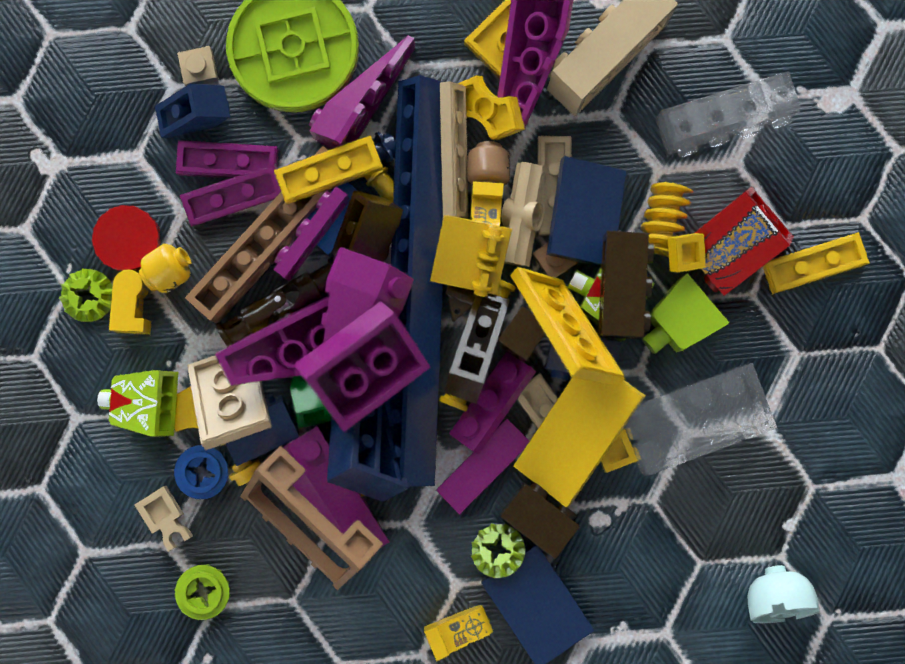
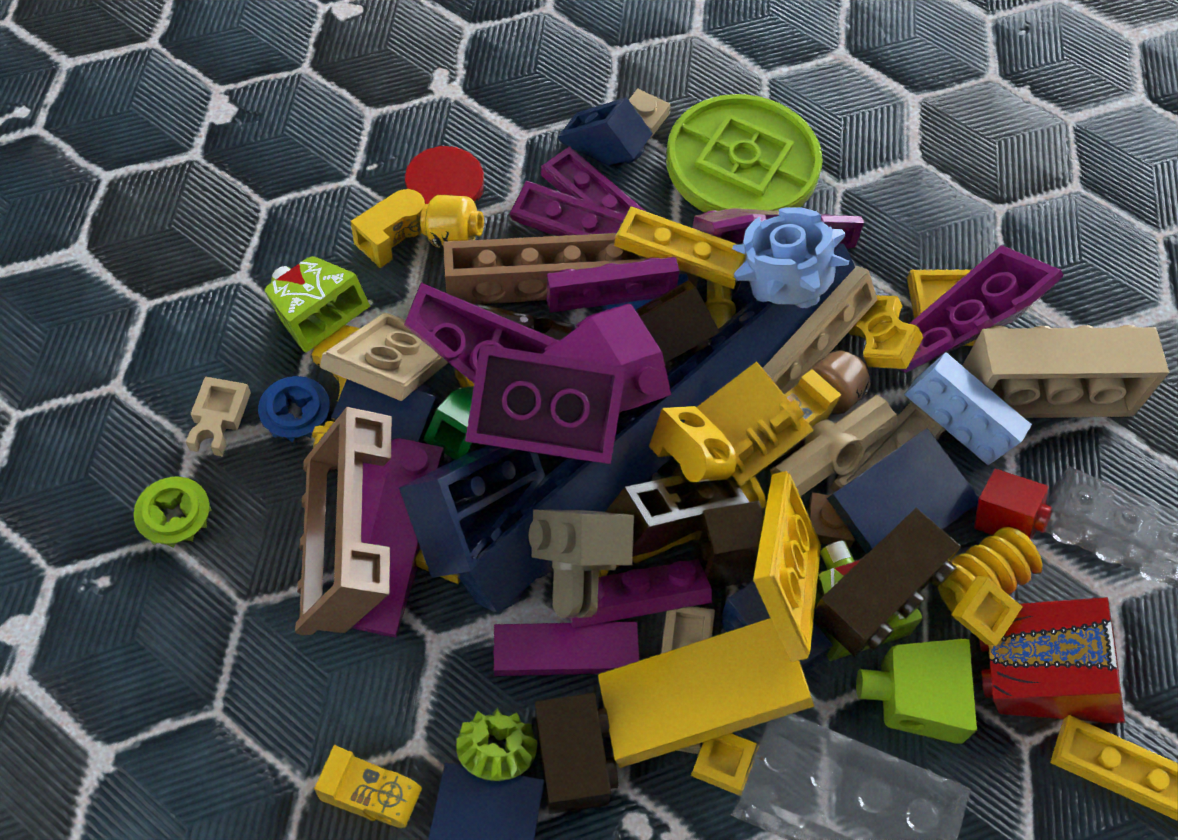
camera: 40 degrees right, 25 degrees down
(90, 310) = (352, 203): lime gear -> none
(401, 142) = (790, 257): none -> light blue brick
(453, 419) = (579, 547): none -> dark tan brick
(456, 301) = (693, 444): none -> yellow leg
(577, 123) = (968, 409): none -> light blue piece
(649, 163) = (1014, 504): none -> red brick

